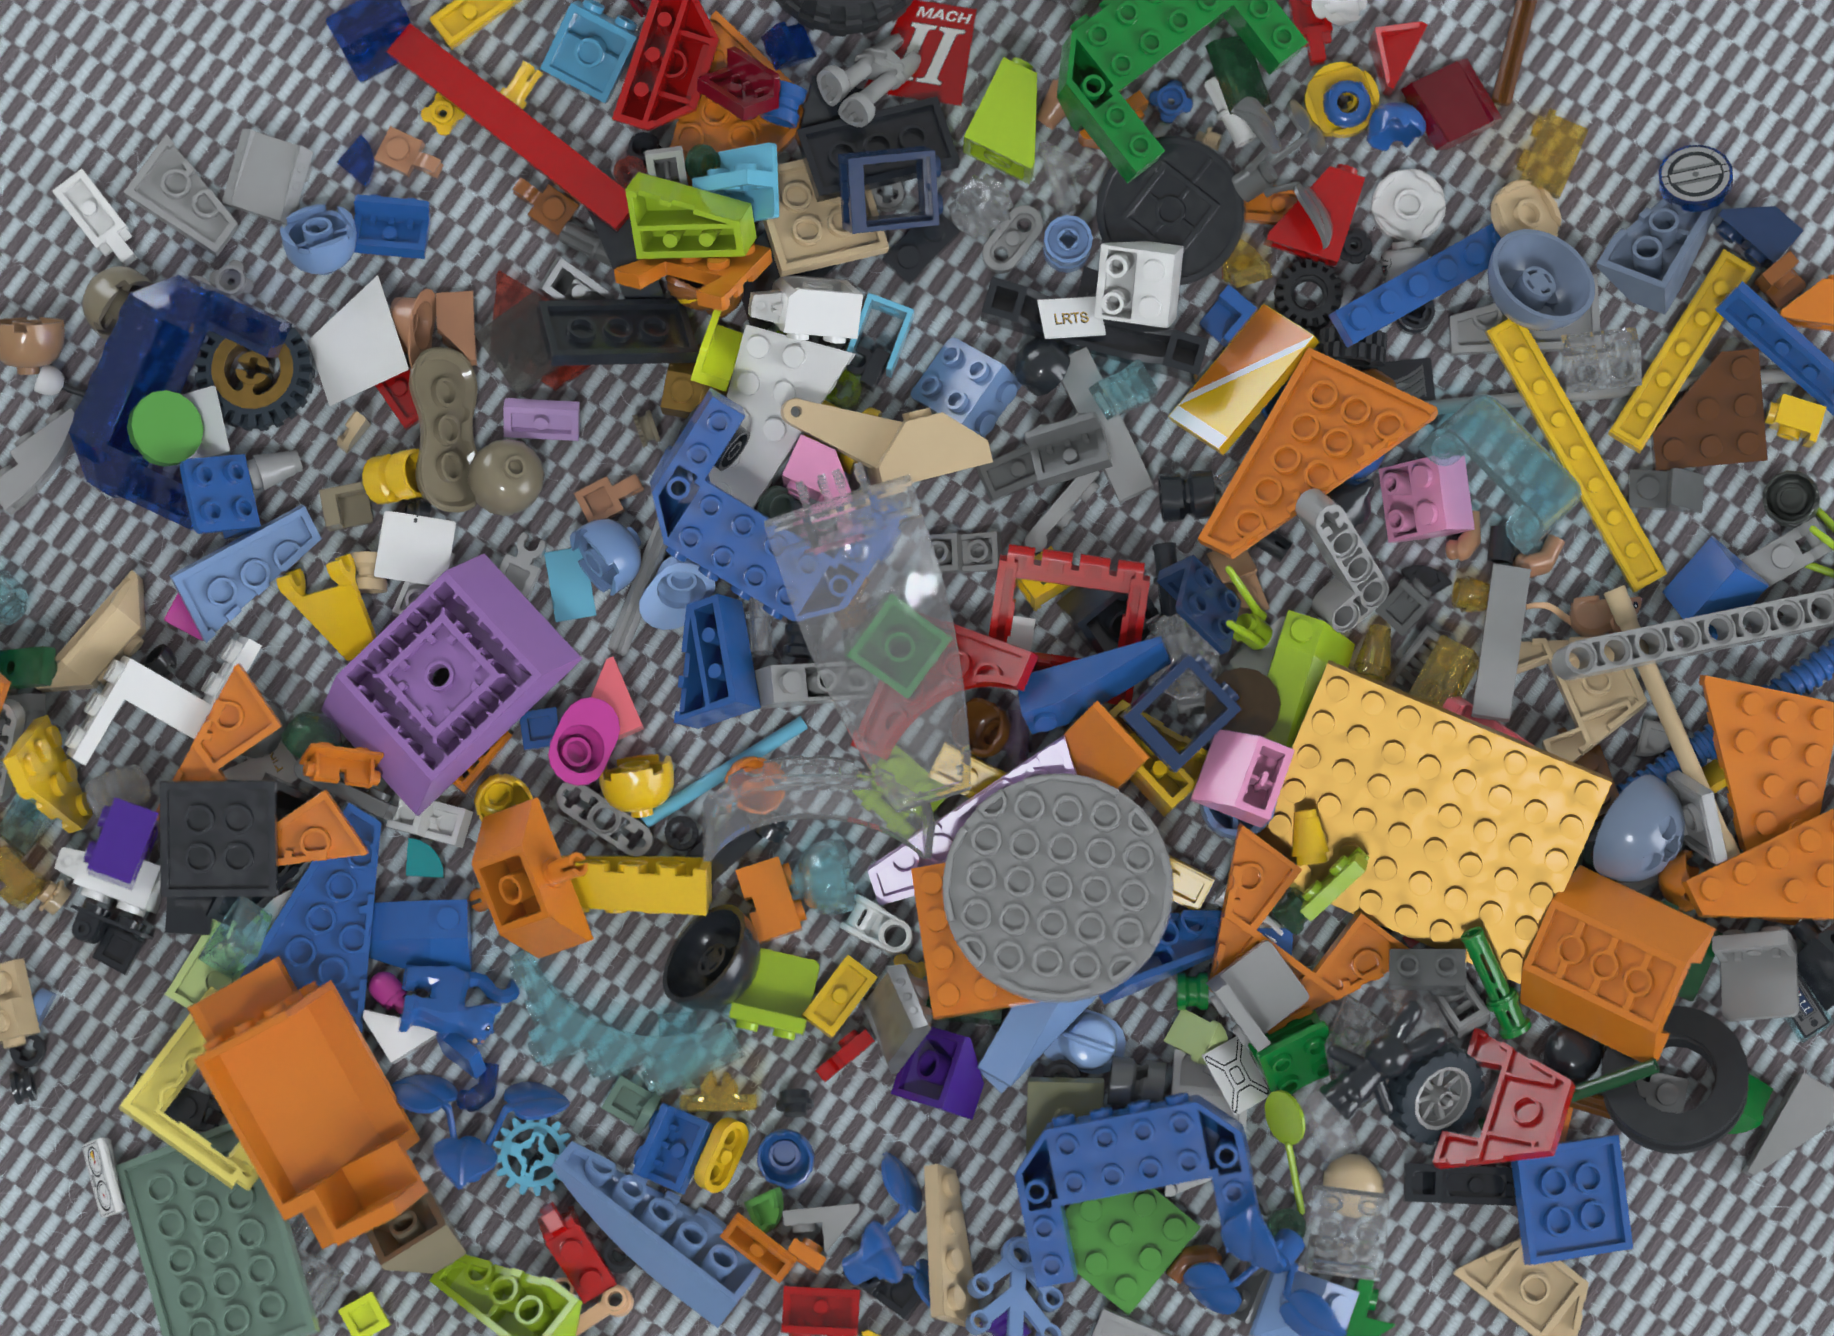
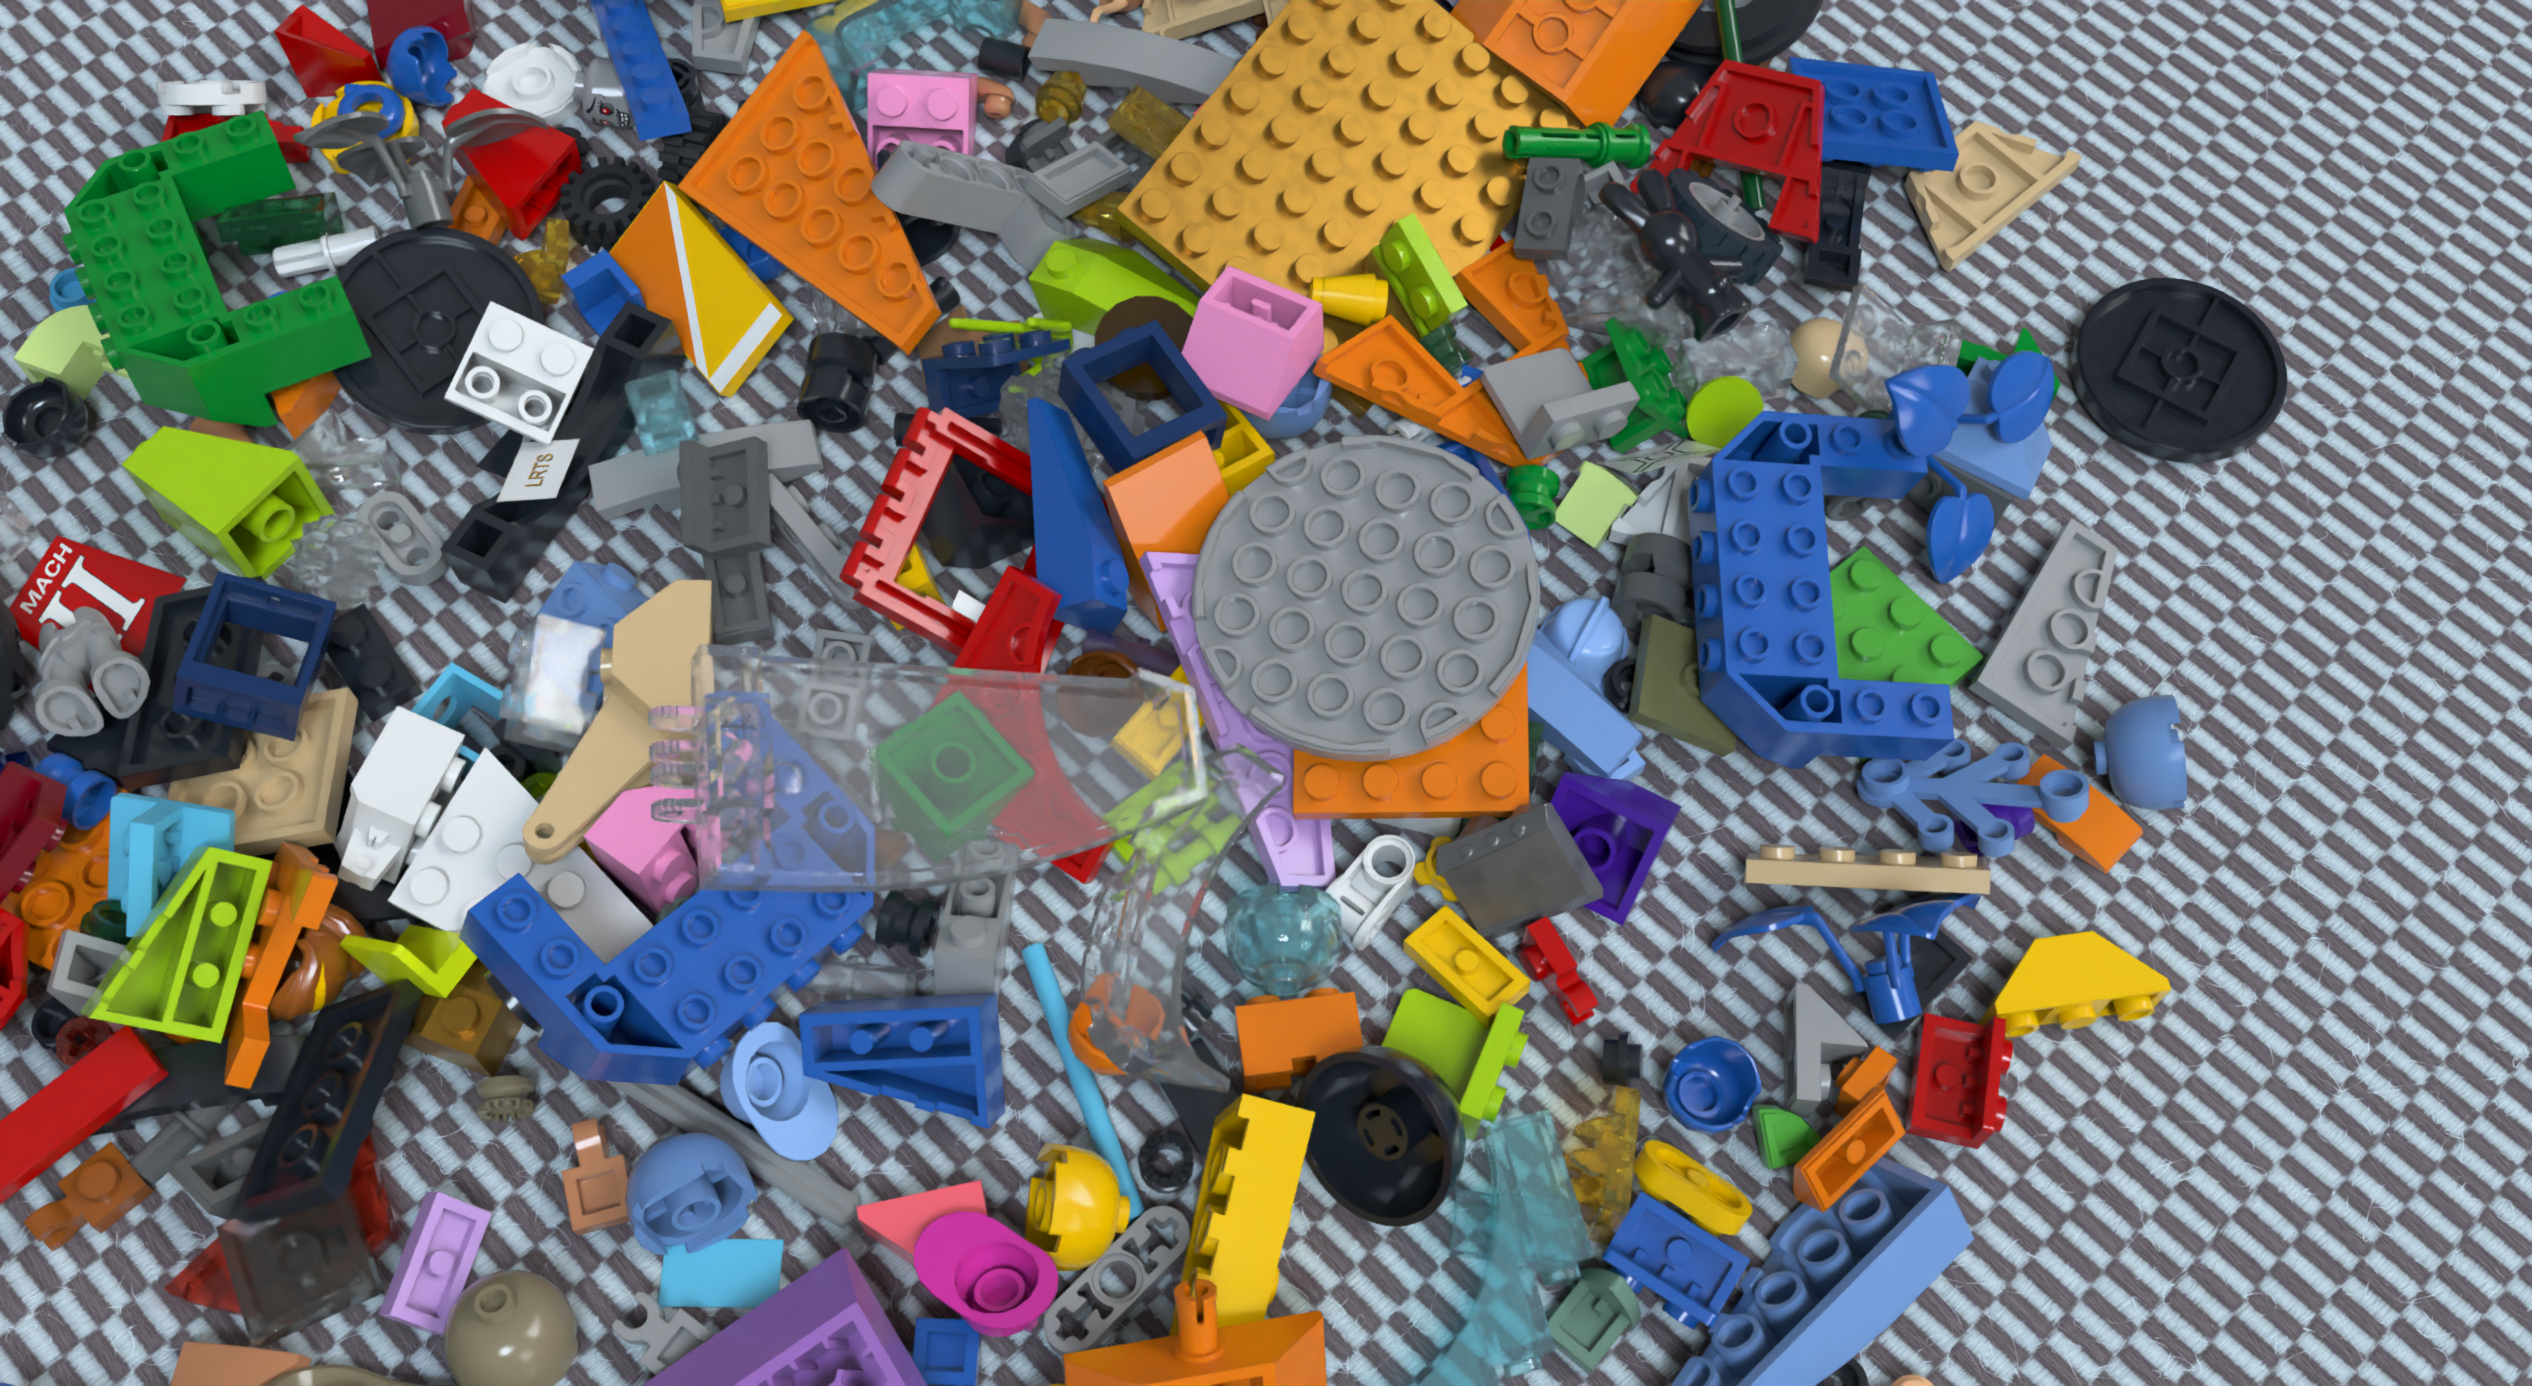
camera: 80 degrees left, 20 degrees down
(905, 380) = (548, 692): none -> clear brick
(1041, 365) = (595, 524): black hair -> none
(1067, 244) = (433, 463): medium blue wheel -> none
(1192, 1255) = (1905, 561): dark orange arm -> none
(1383, 626) = (1078, 179): none -> light grey tile

